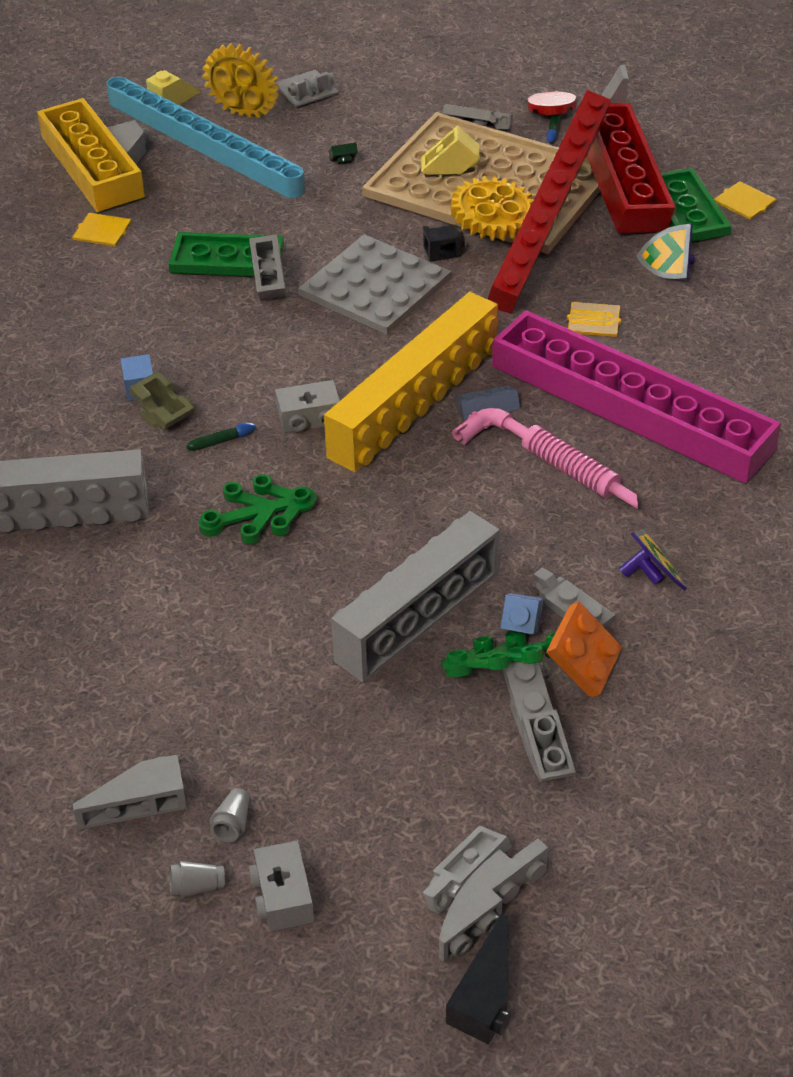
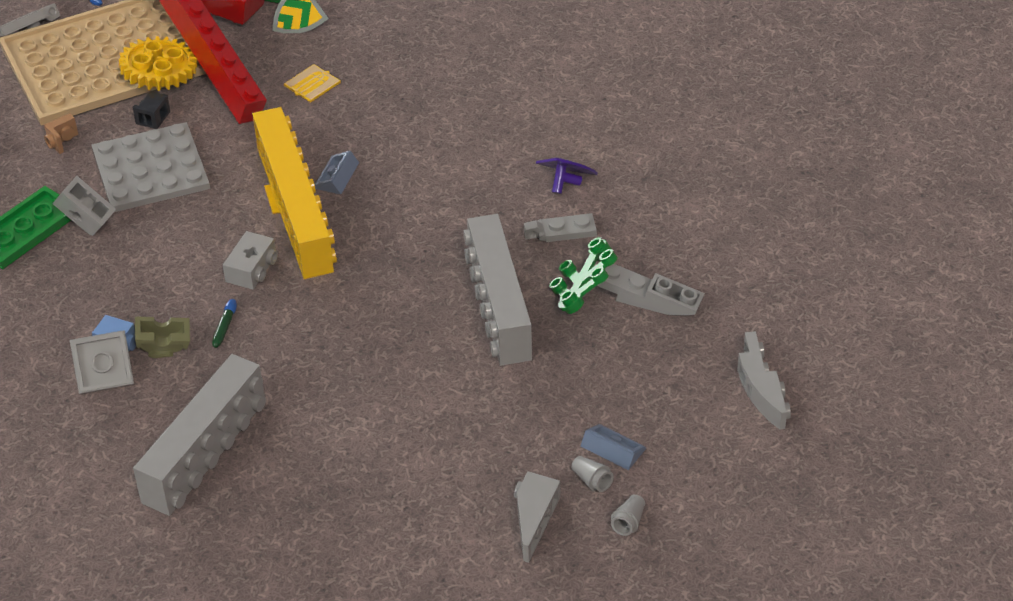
camera: 55 degrees left, 0 degrees up
(96, 386) = (101, 362): none -> light grey tile
(262, 509) = (332, 311): green plant -> none
(283, 886) = (673, 472): light grey brick -> none
(292, 812) = (612, 446): none -> sand blue slope
(358, 207) = (60, 131): none -> medium nougat bracket
(451, 154) = (70, 53): light yellow slope -> none
(460, 865) = (729, 380): light grey hinge -> none
(482, 995) = (825, 413): black slope -> none
(521, 613) = (557, 250): medium blue brick -> none
(550, 449) = (422, 165): bright pink piece -> none
(584, 649) = (615, 237): orange plate -> none
(637, 396) = (414, 100): dark pink brick -> none

